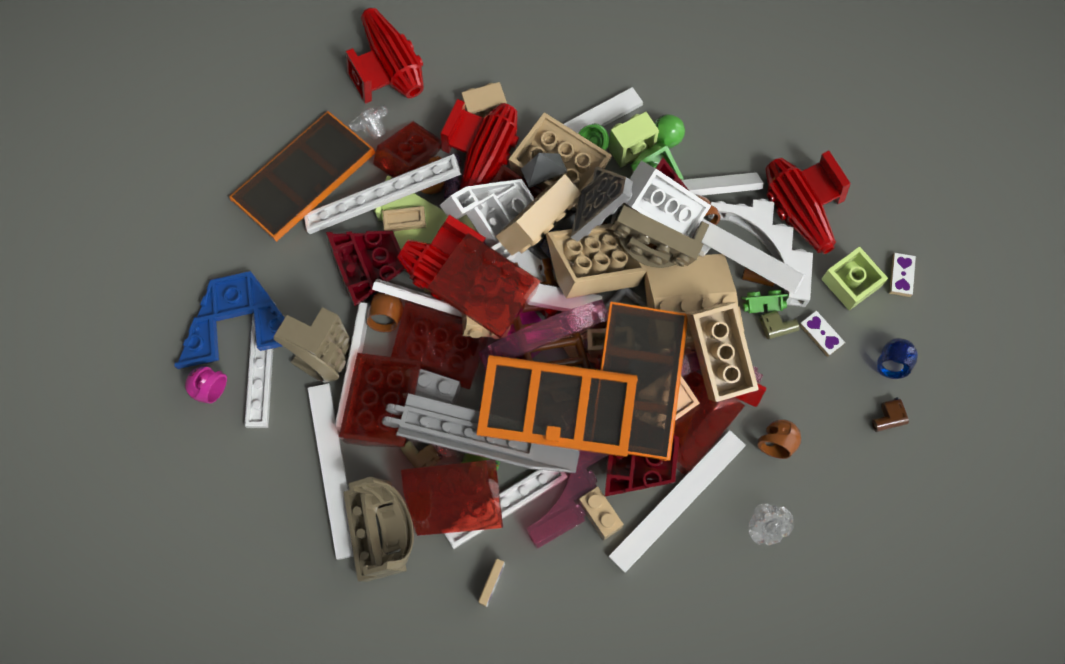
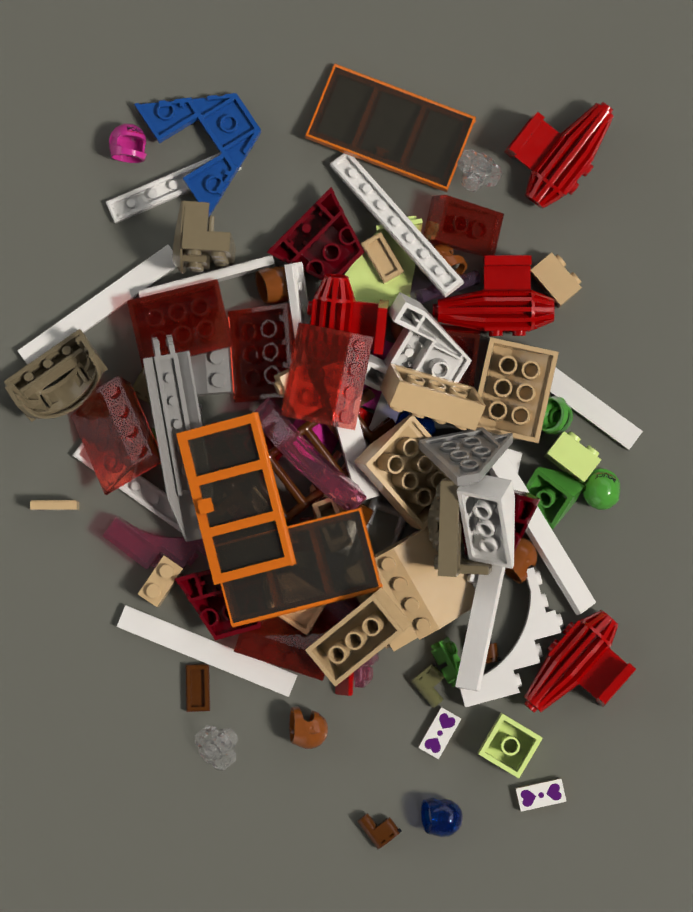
camera: 75 degrees right, 15 degrees up
(543, 168) = (491, 379): dark grey slope -> none
(708, 522) = (197, 688): none -> reddish brown tile

